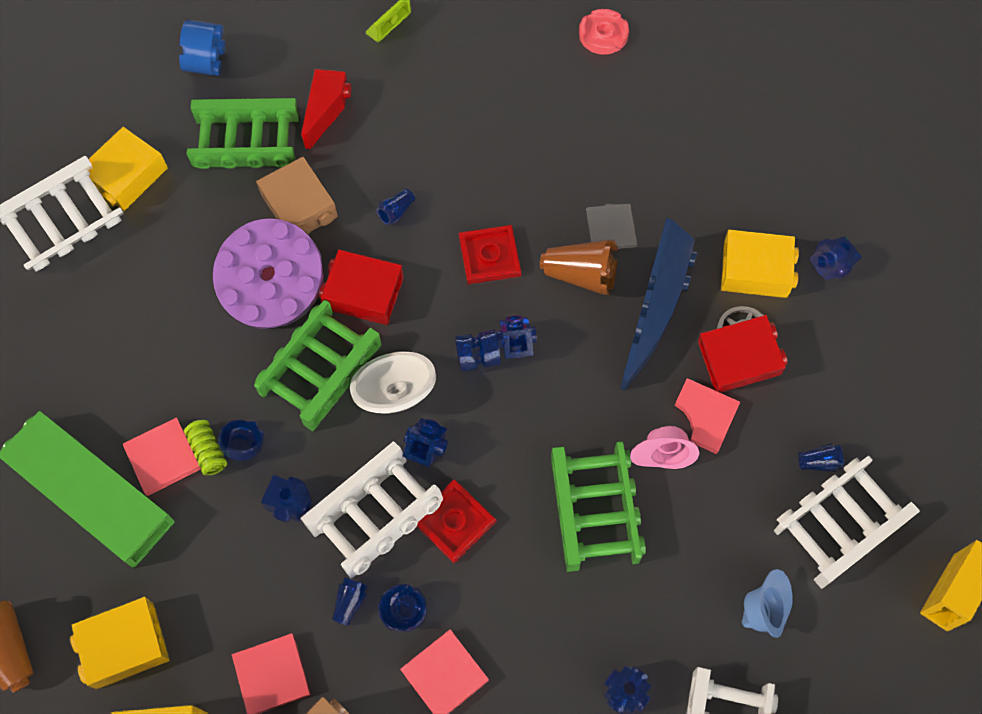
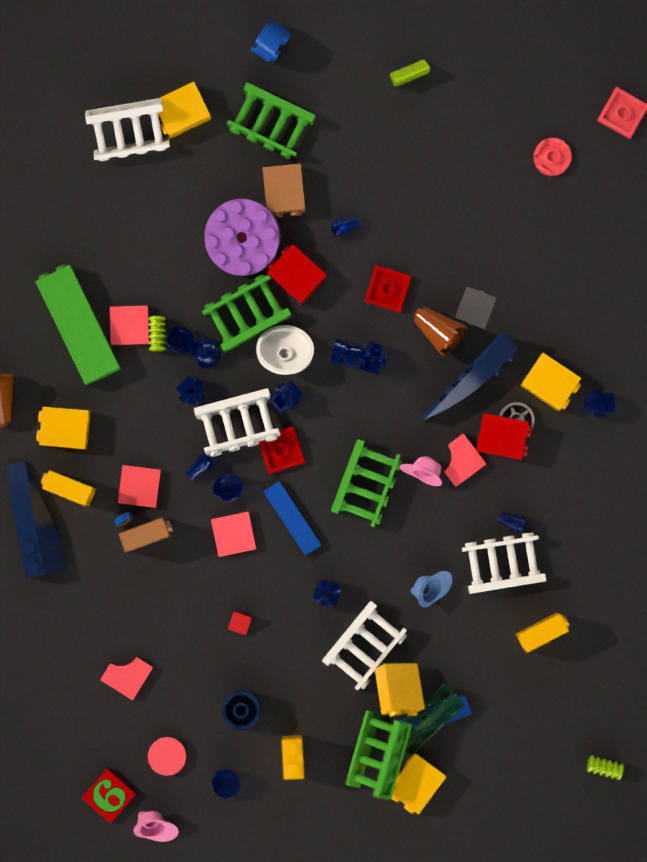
camera: 30 degrees right, 20 degrees up
(287, 442) = (206, 353): none -> clear blue hair
(325, 103) = (336, 122): red slope -> none
(518, 608) = (292, 518): none -> blue tile

